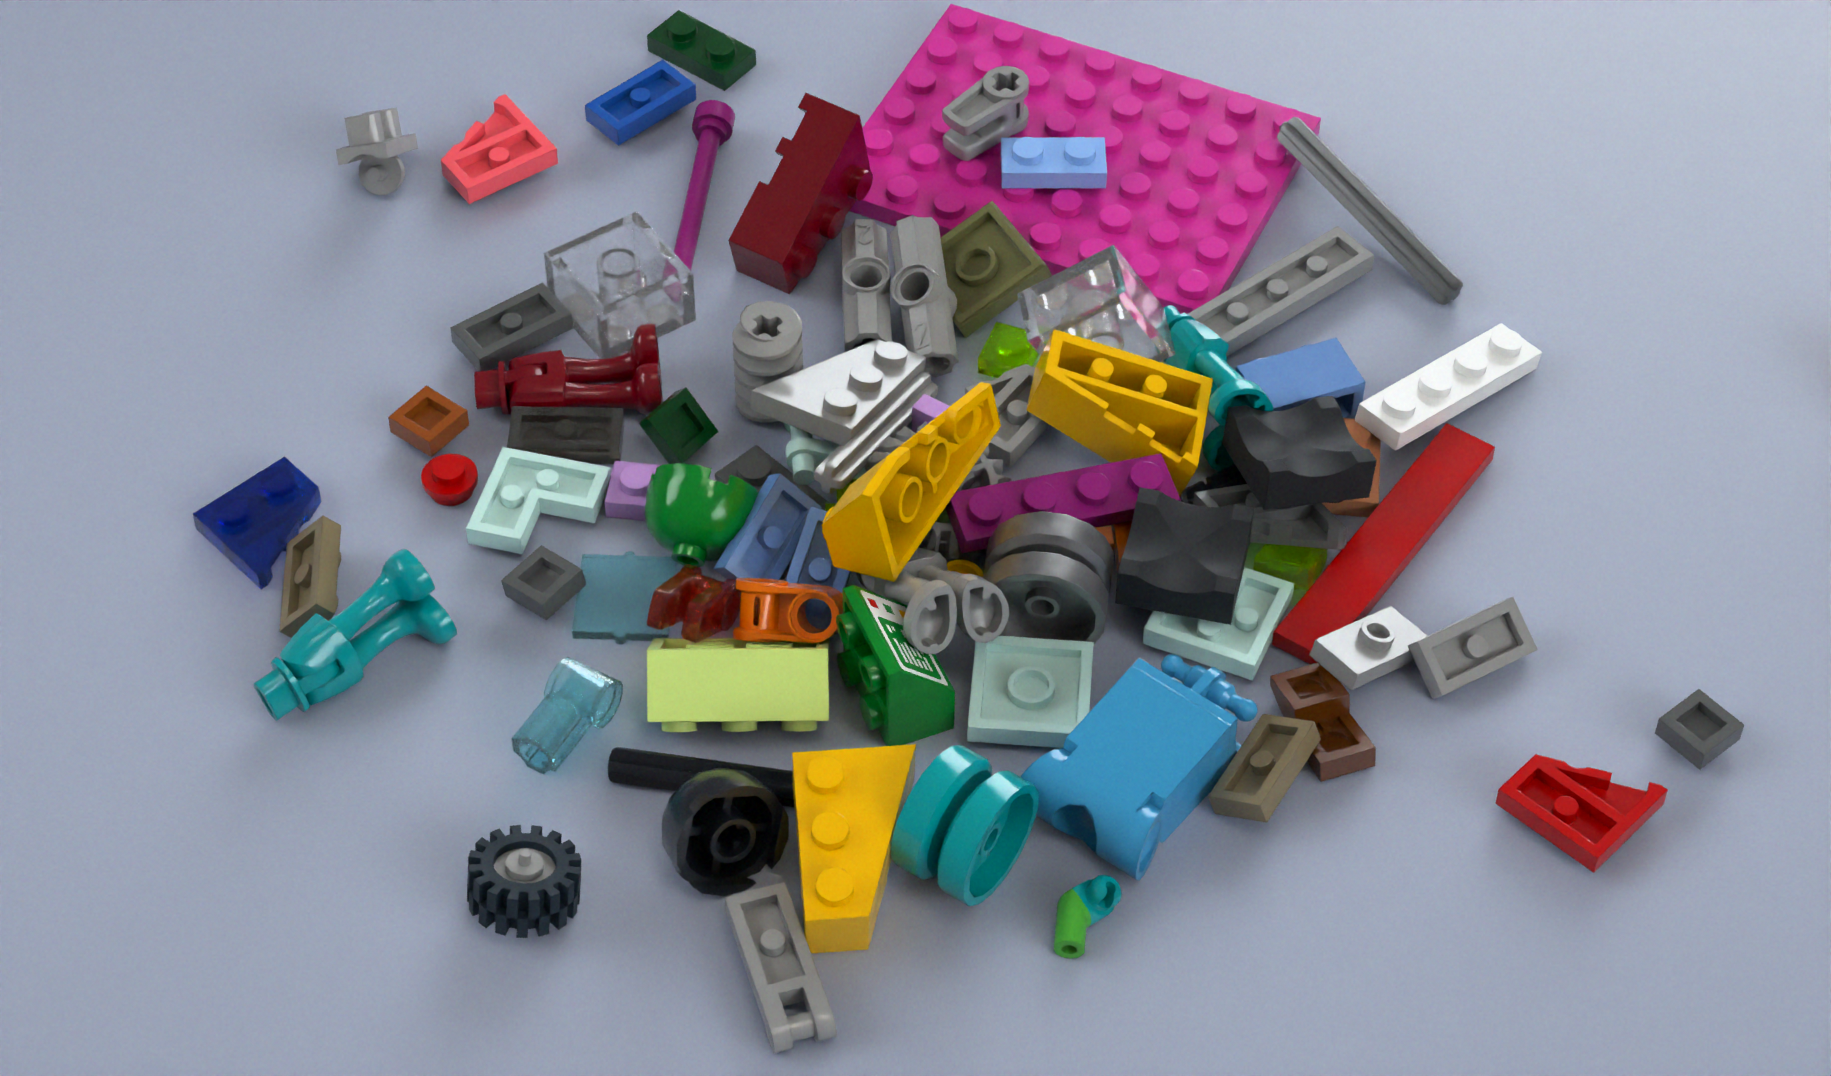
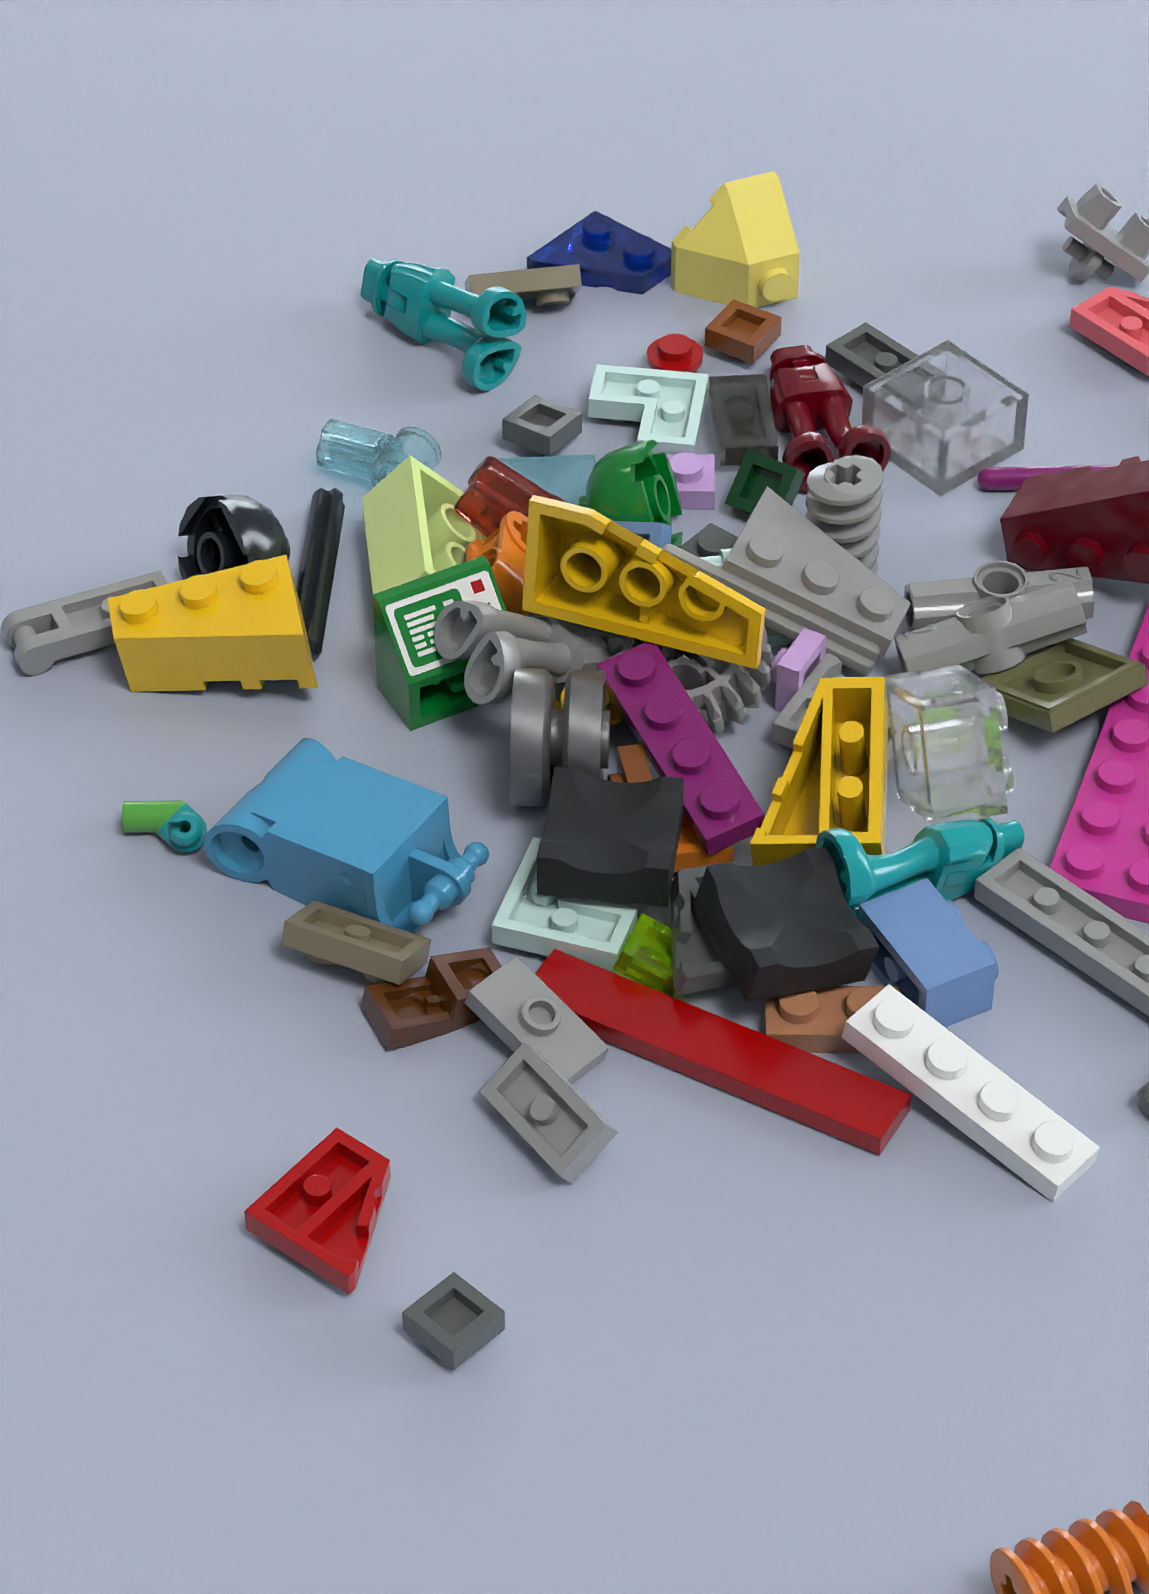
camera: 85 degrees right, 5 degrees down
(326, 394) = (739, 247): none -> light yellow slope
(523, 881) = (173, 447): black wheel -> none
(964, 825) = (232, 699): teal wheel -> none
(1029, 690) = (452, 755): light aqua plate -> none

